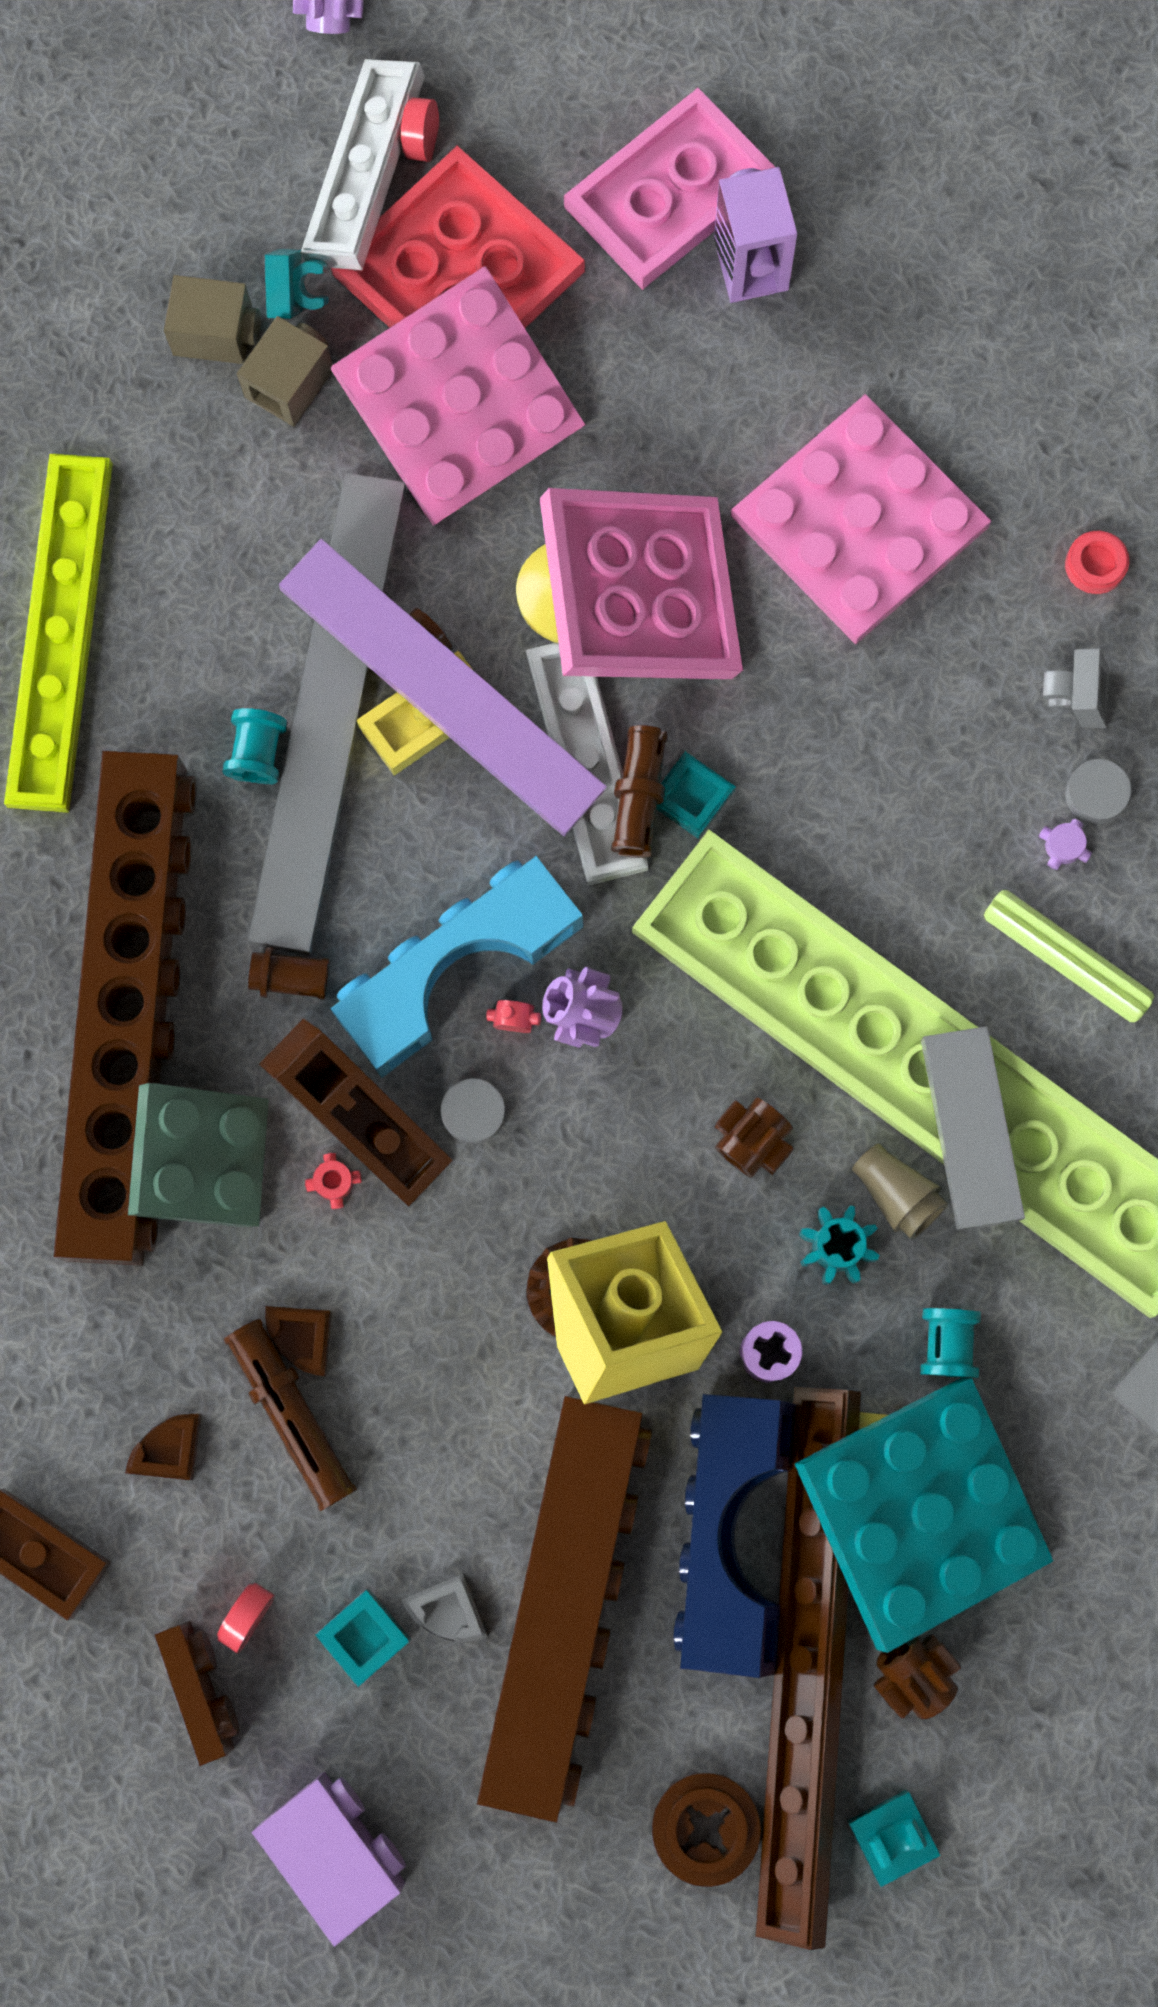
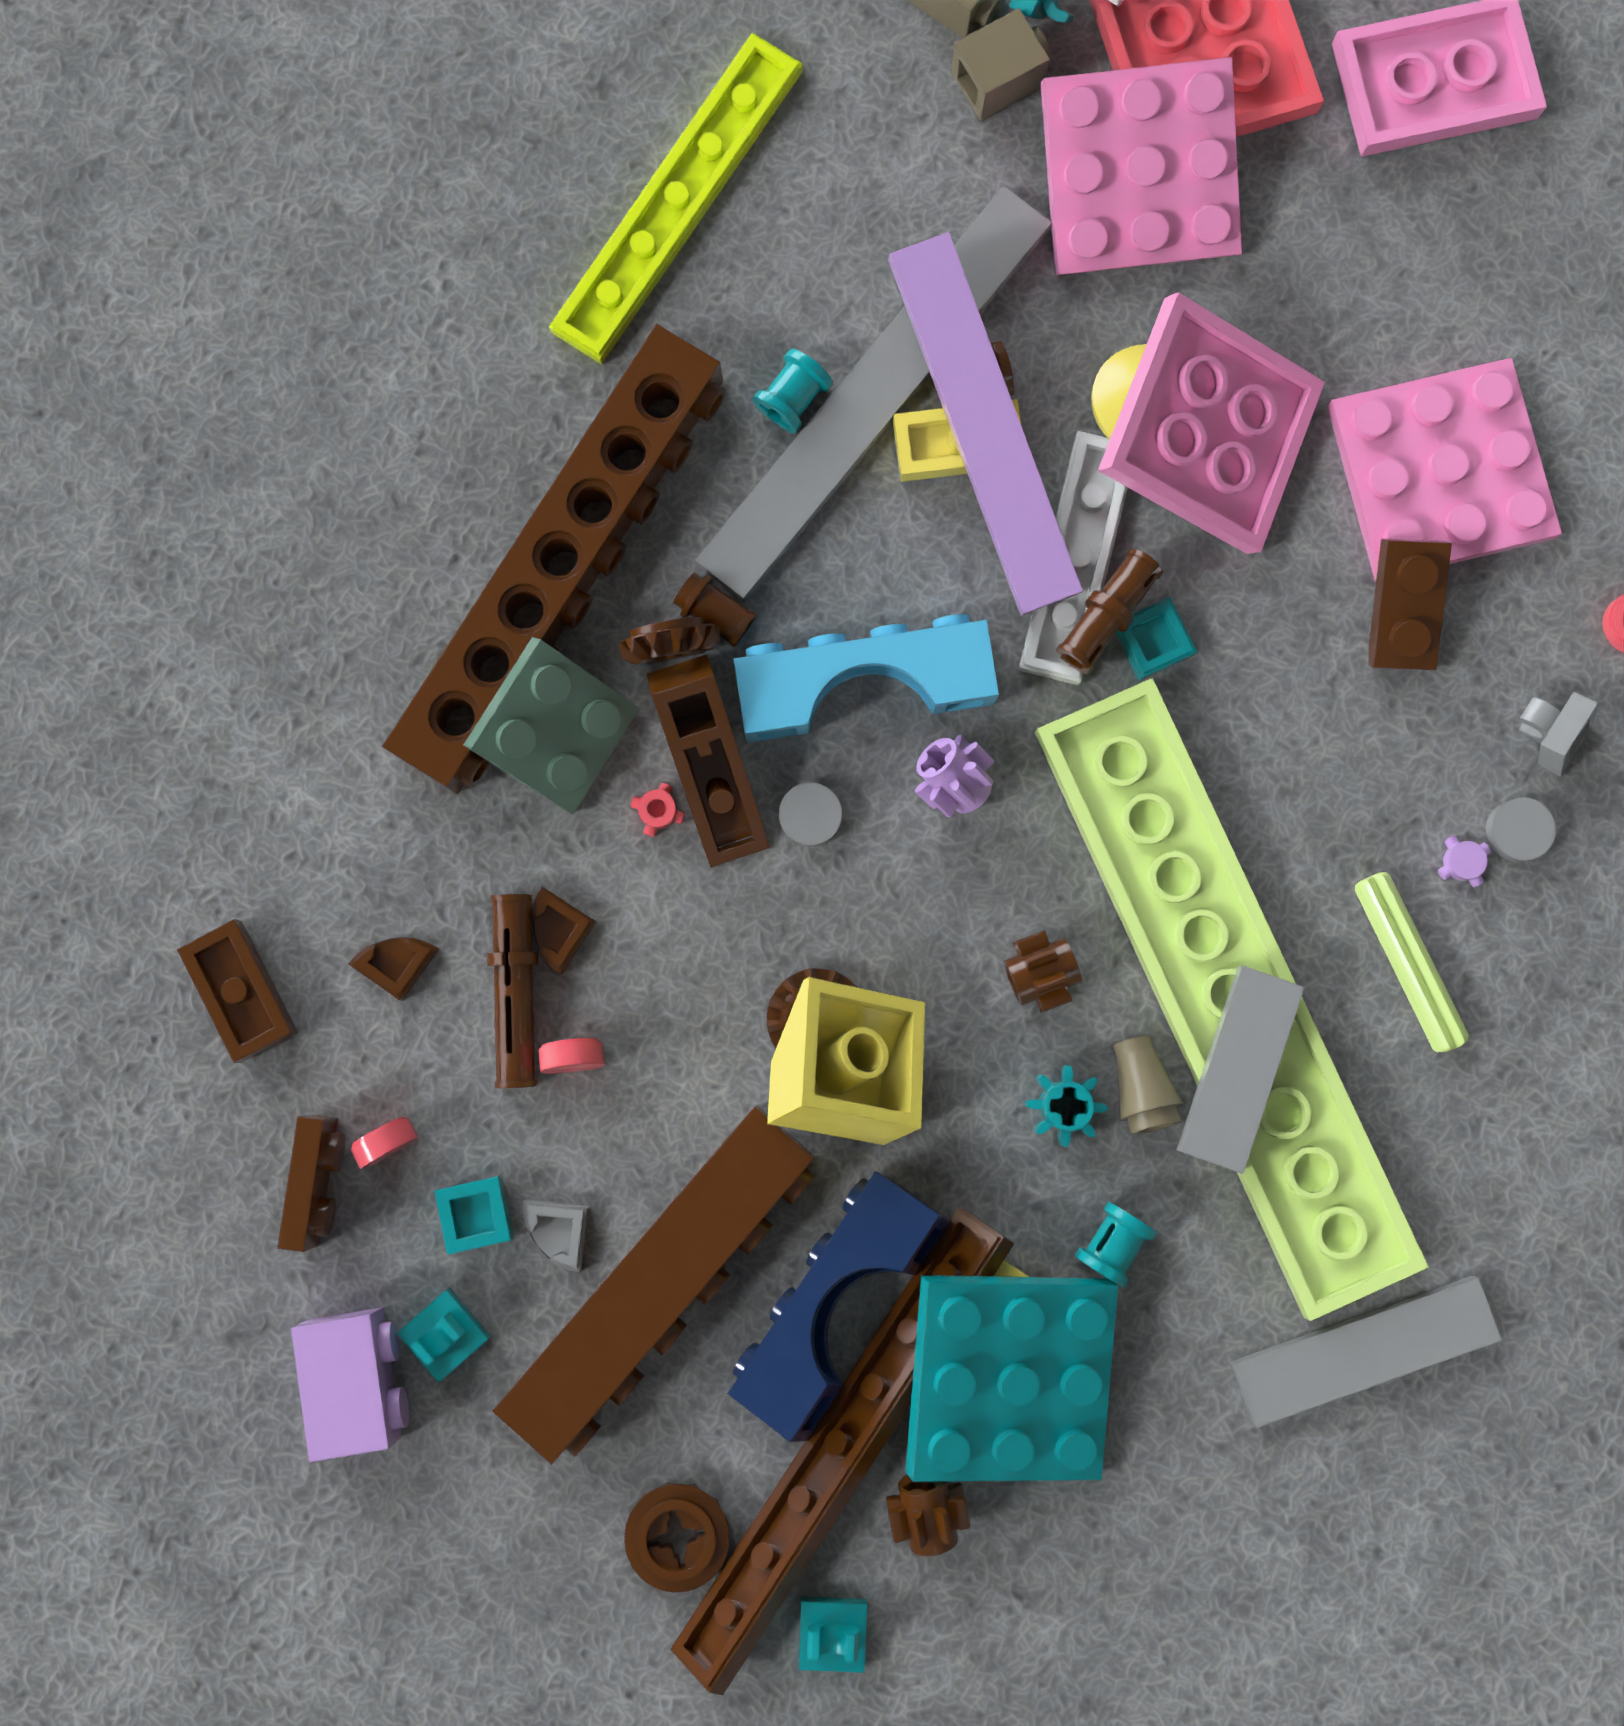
camera: 30 degrees right, 5 degrees up
(264, 1023) = (669, 640): none -> reddish brown gear
(374, 1444) = (571, 1055): none -> coral tile
(394, 1764) = (443, 1334): none -> teal tile
(513, 1016) = (890, 751): coral piece -> none
(754, 233) = (1494, 154): lavender brick -> none
(789, 1346) = (974, 1168): lavender bush -> none
(894, 649) = (1409, 603): none -> reddish brown plate

